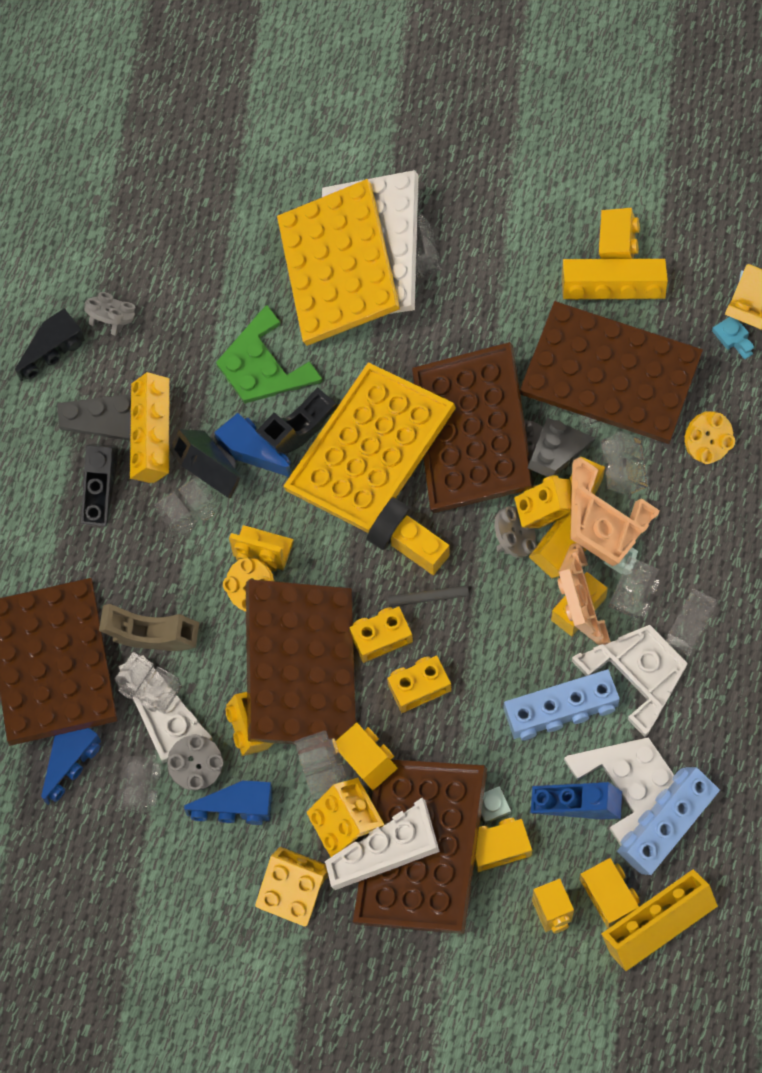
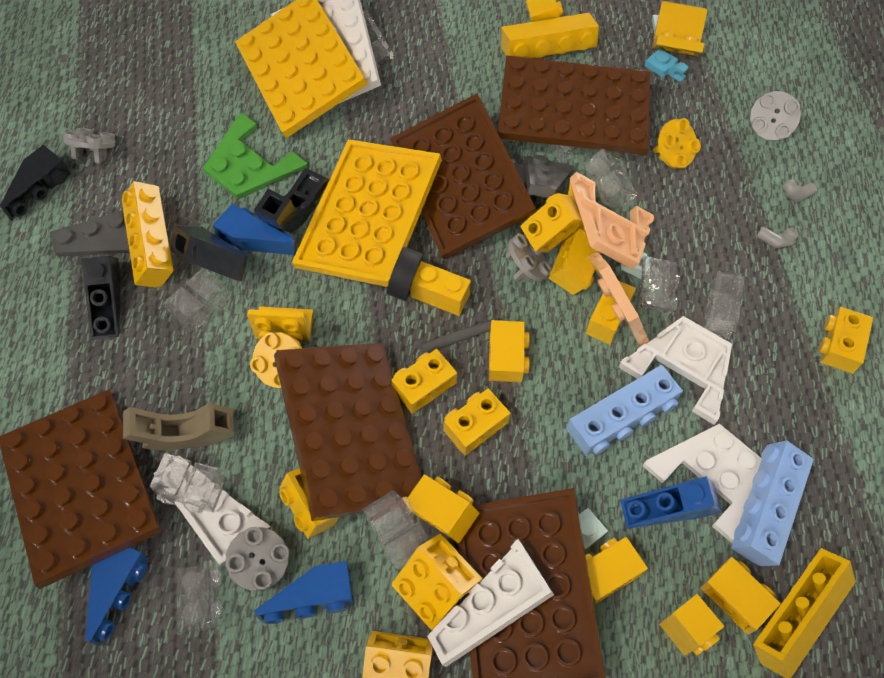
camera: 20 degrees left, 5 degrees down
(467, 622) = (507, 351): none -> yellow brick

